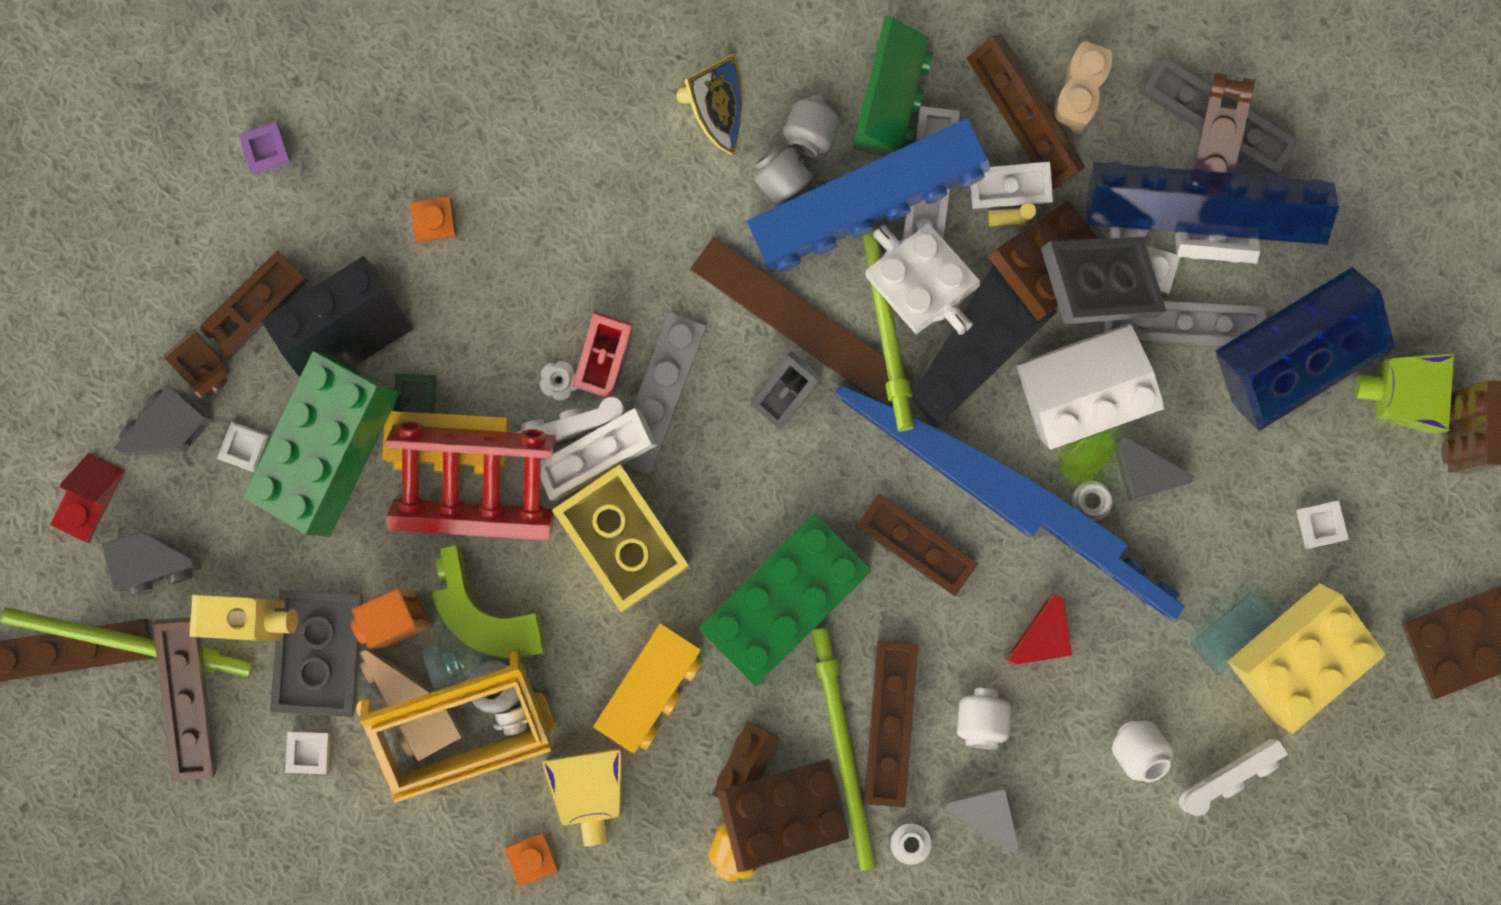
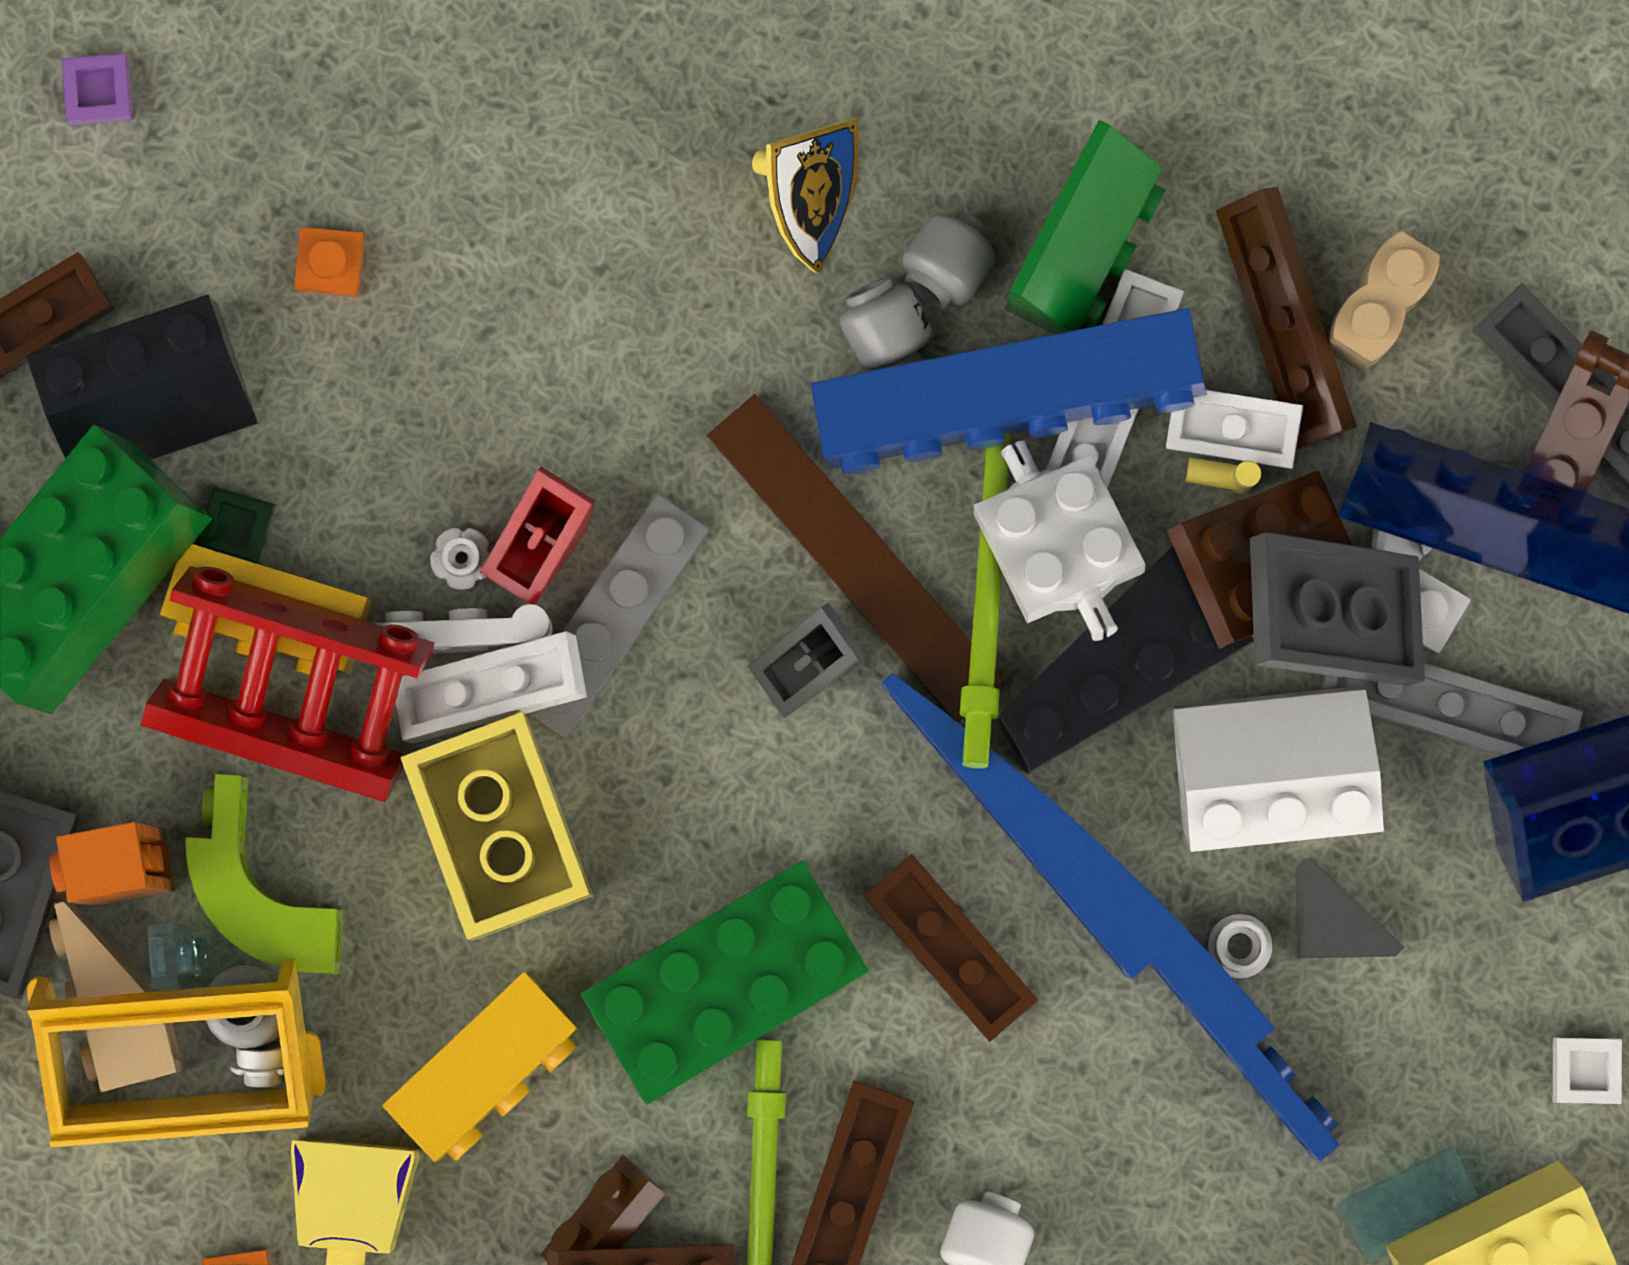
camera: 15 degrees right, 0 degrees up
(1045, 636) = (1113, 1138): red slope -> none
(1086, 457) = (1246, 877): clear neon green brick -> none
(1217, 247) = (1531, 601): white plate -> none

